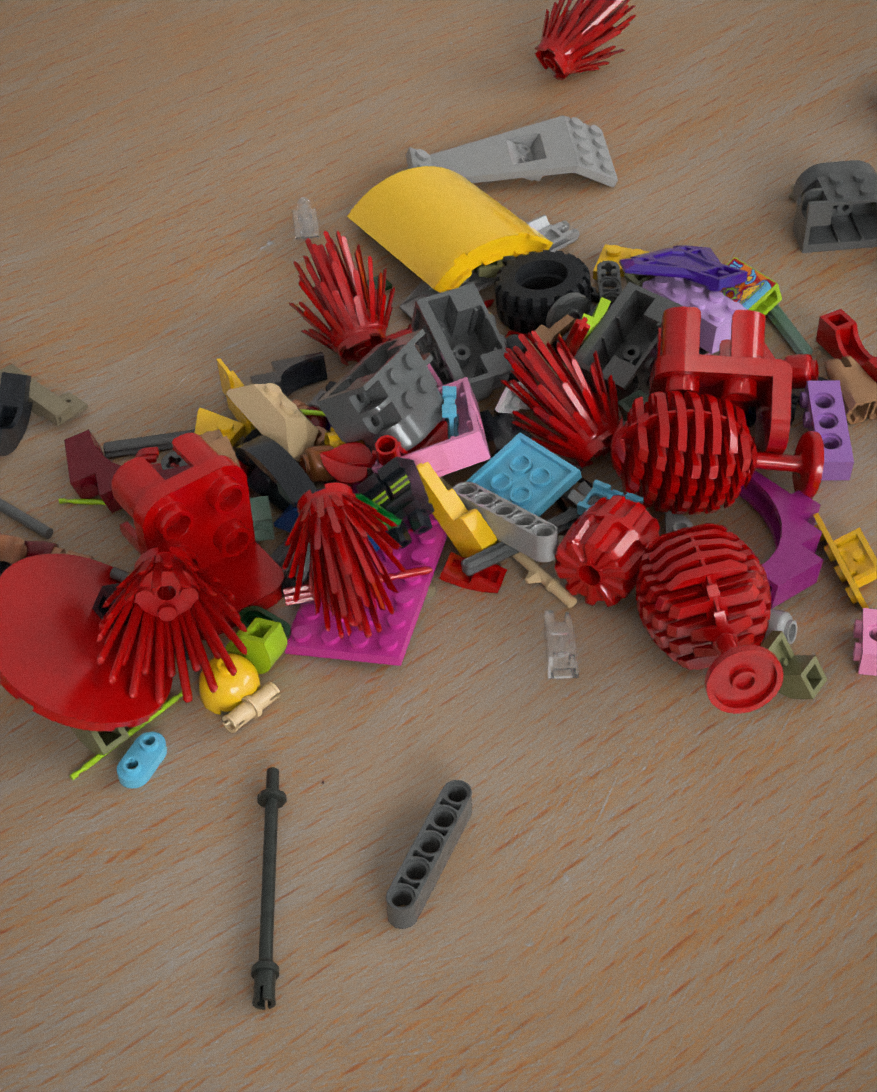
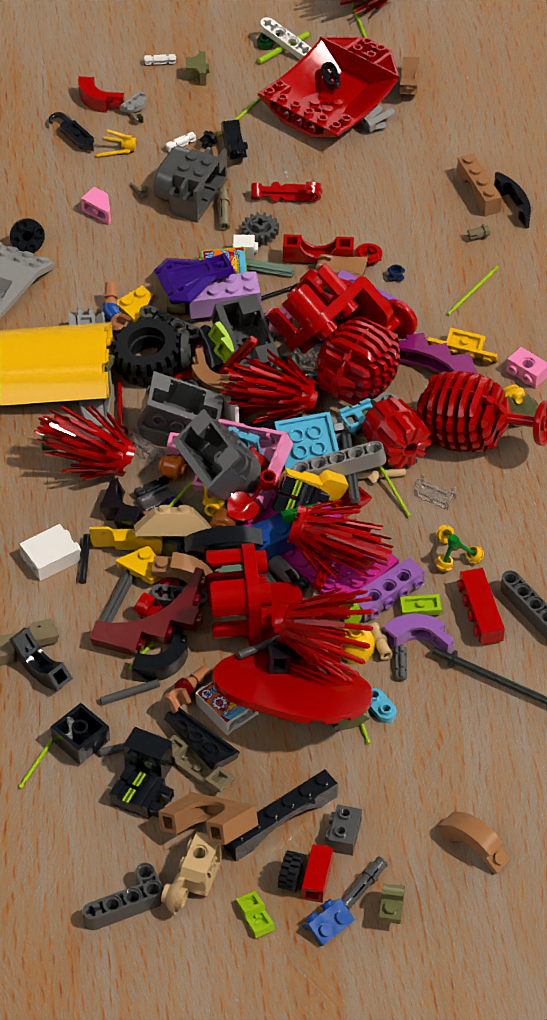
camera: 60 degrees left, 5 degrees up
(78, 523) = (164, 664): none -> black arch
(182, 359) = (50, 552): none -> white brick
(191, 395) = (84, 559): none -> black bar
(230, 747) = (401, 662): none -> dark grey axle
(293, 725) = (418, 626): none -> medium lavender arch
(344, 673) = (391, 586): none -> medium lavender brick
(345, 722) = (421, 604): none -> lime plate
(384, 786) = (481, 606): none -> red brick
(442, 709) = (444, 561): none -> yellow plant
(528, 604) = (394, 491): none -> lime piece
(589, 244) = (111, 308): none -> nougat piece
(627, 141) = (27, 235): none -> black plate
(736, 169) = (97, 205): none -> bright pink slope
(798, 298) = (249, 244): none -> white brick
(810, 645) = (515, 393): none -> yellow piece
(824, 109) = (73, 131): none -> black plate
(844, 295) = (261, 226): none -> dark grey gear
(850, 254) = (223, 208): none -> dark tan pin
(852, 148) = (128, 142): none -> yellow plant

